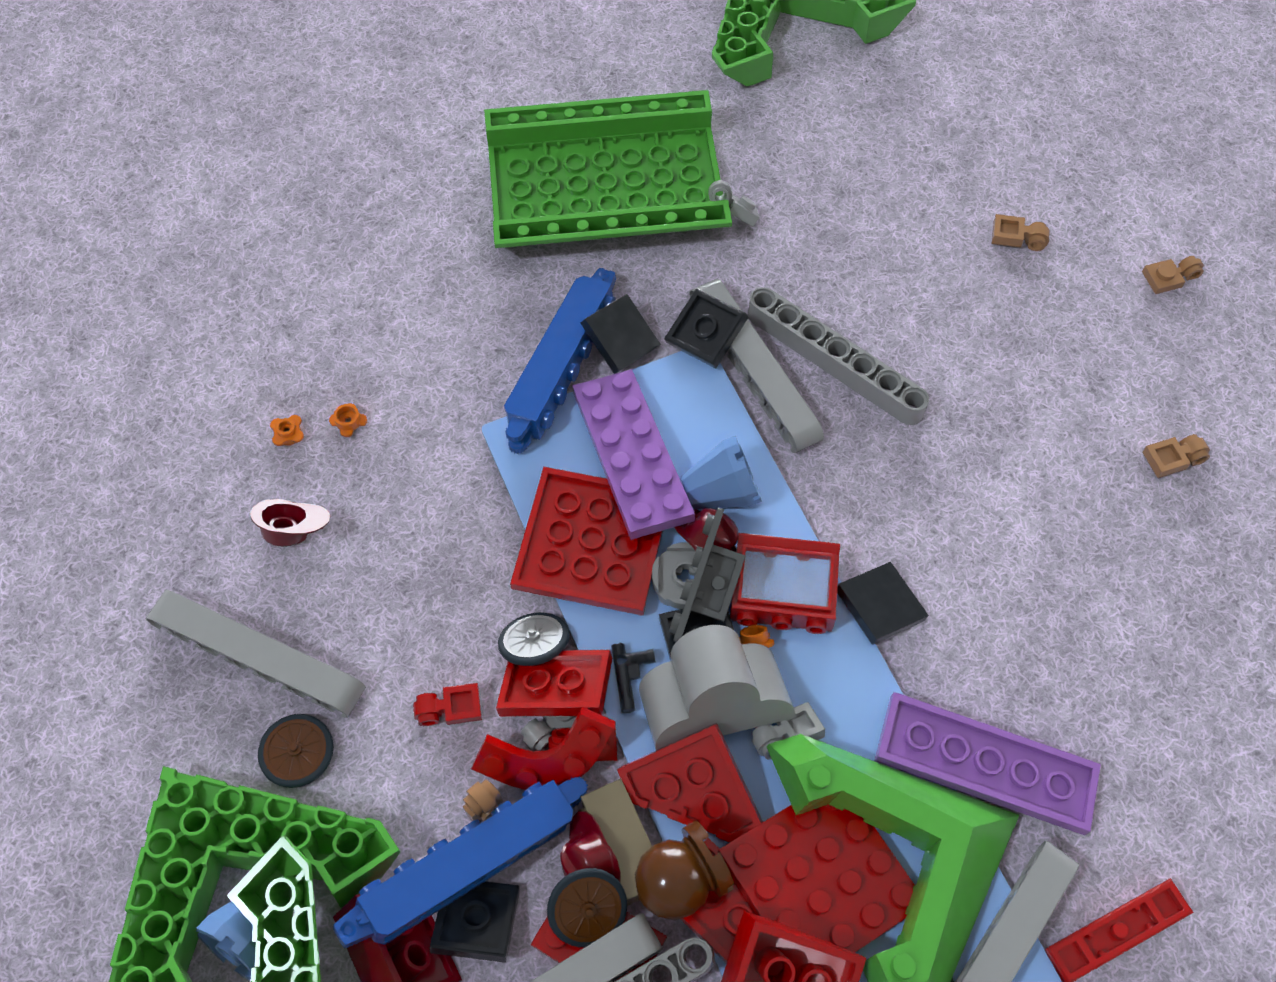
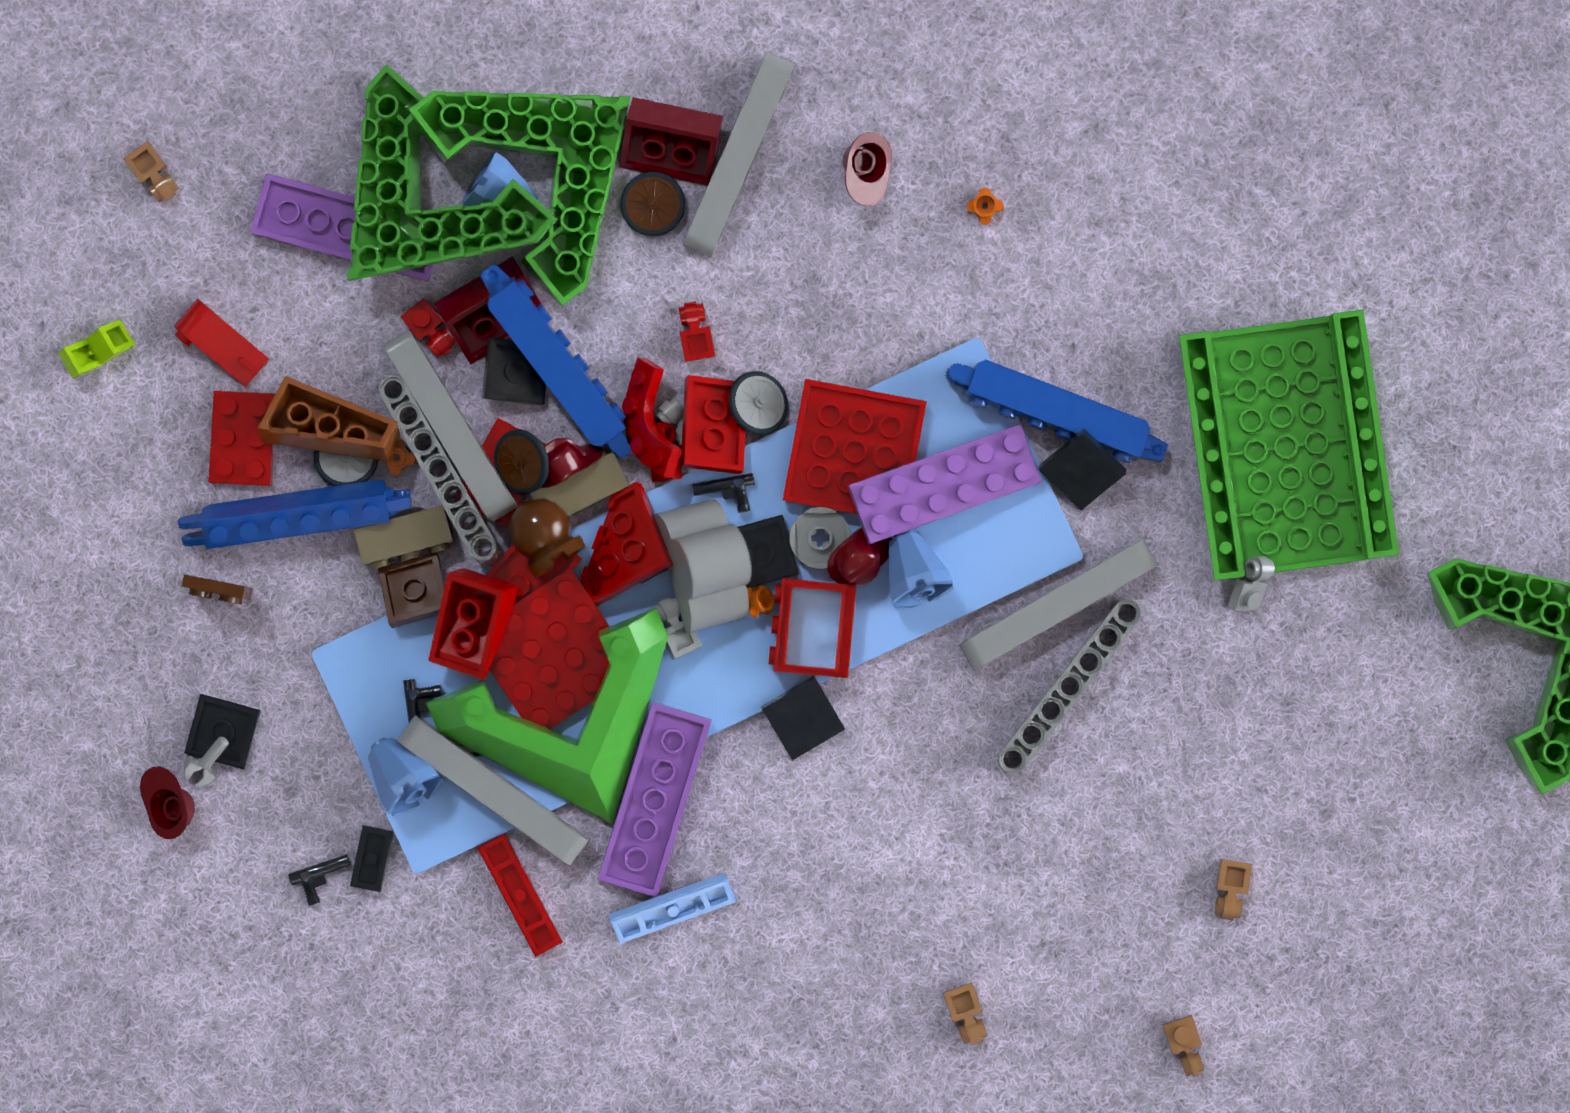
camera: 90 degrees right, 25 degrees up
(226, 725) = (670, 141): none -> dark red slope
(290, 437) = (974, 140): orange plate -> none
(481, 800) = (607, 370): medium nougat plate -> none
(706, 328) = (1090, 554): black tile -> none
(713, 581) = (803, 561): dark grey bracket -> none
(1111, 749) = (672, 908): none -> light blue plate

